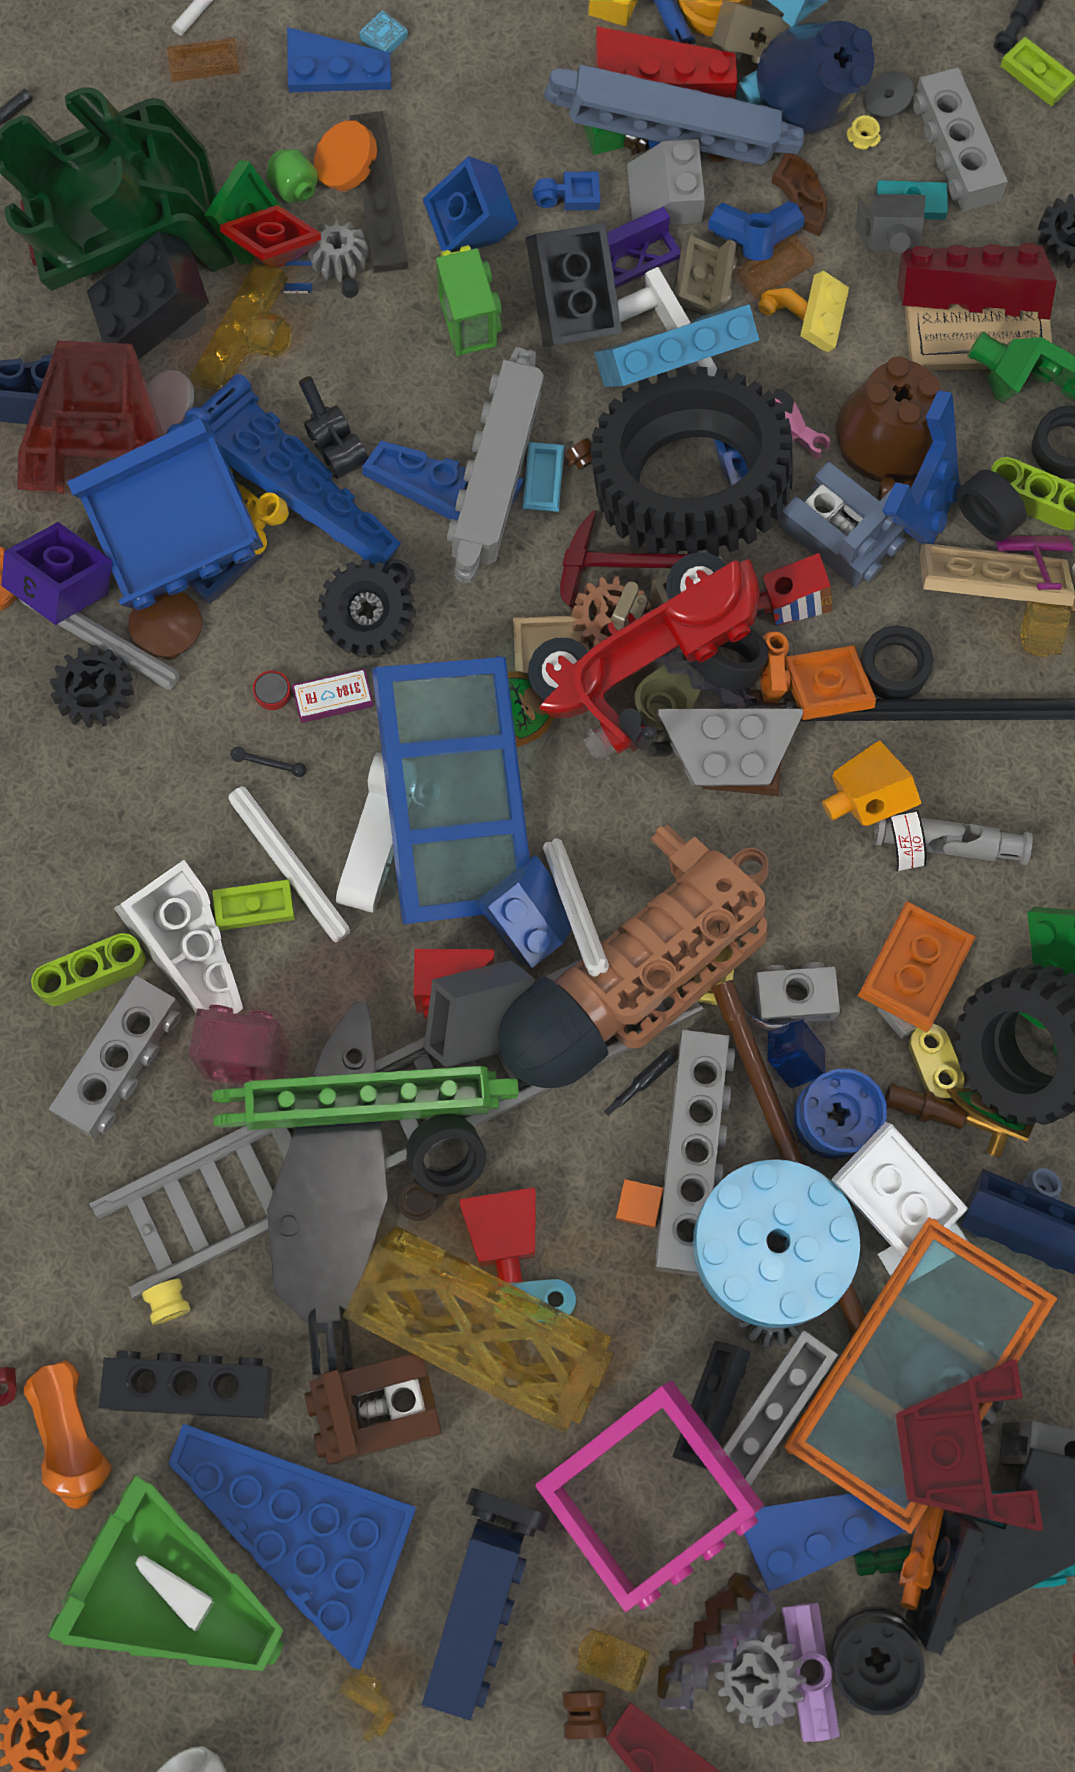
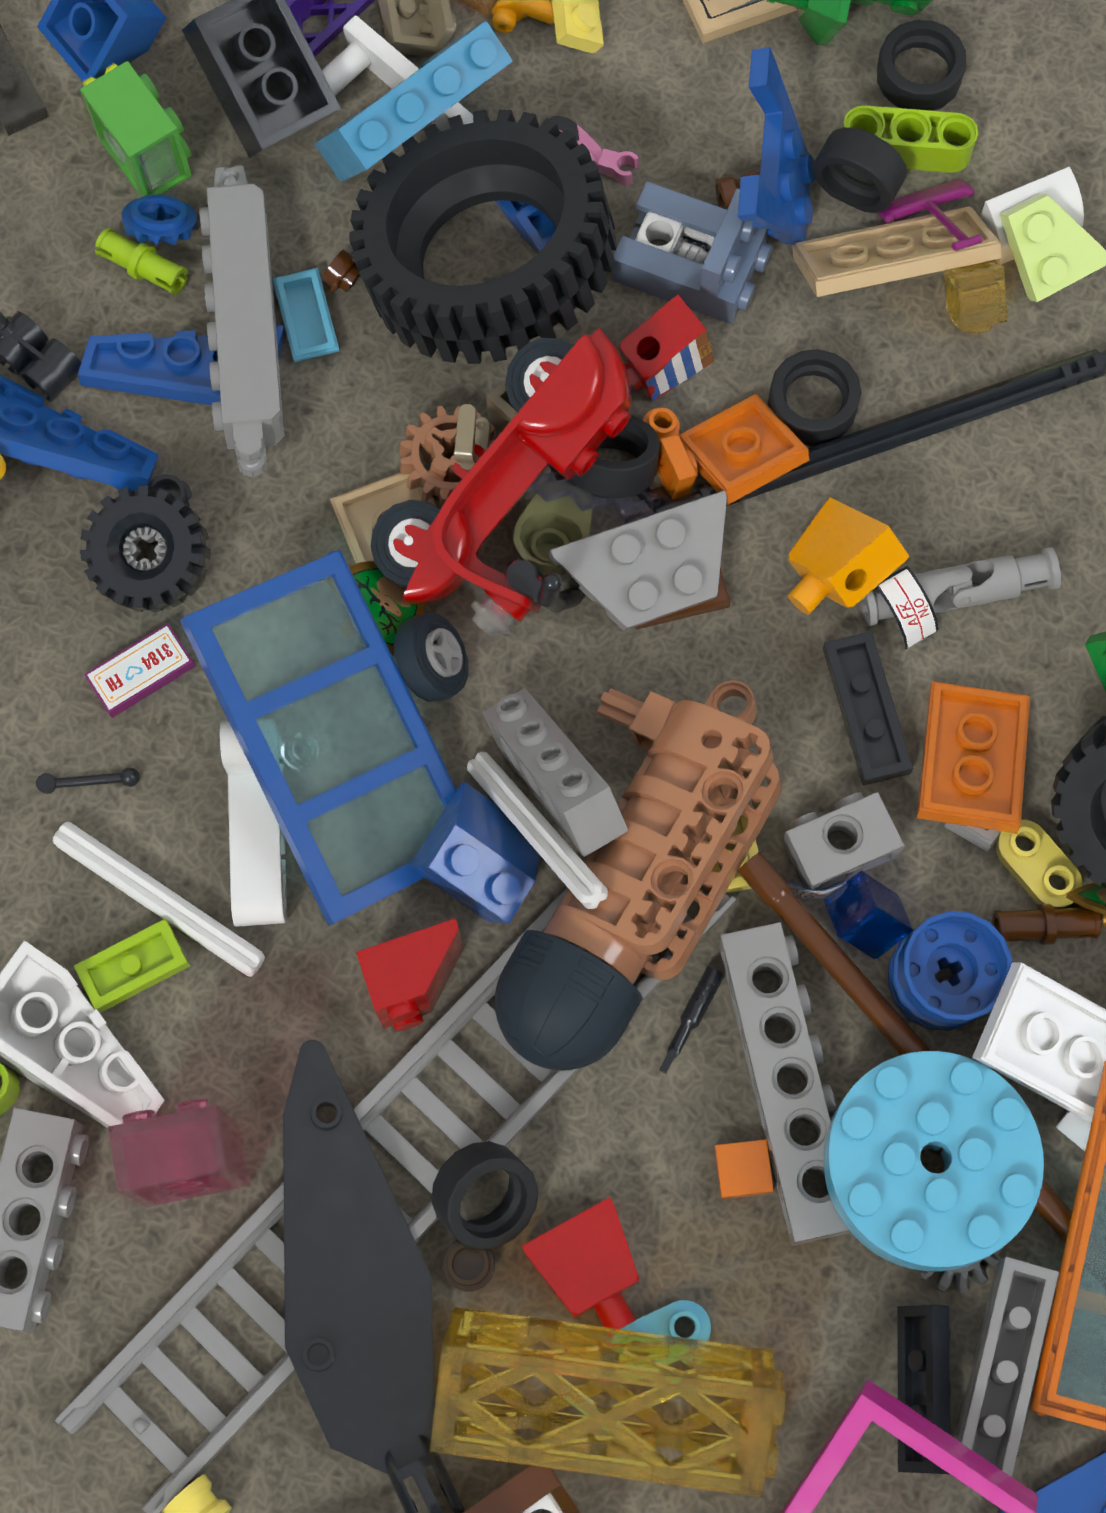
camera: 15 degrees left, 0 degrees up
(272, 690) = (61, 689): flat silver tile -> none
(365, 1097) = (358, 1162): bright green hinge -> none
(438, 398) = (141, 261): none -> lime pin
(448, 368) = (142, 217): none -> blue gear
(469, 1011) = (451, 1005): dark grey brick -> none
(545, 757) = (431, 657): none -> black wheel
(578, 559) = (384, 400): dark red piece -> none
(603, 870) = (555, 772): none -> light grey brick
(851, 904) = (867, 708): none -> black plate
(885, 423) = (698, 109): reddish brown cone -> none

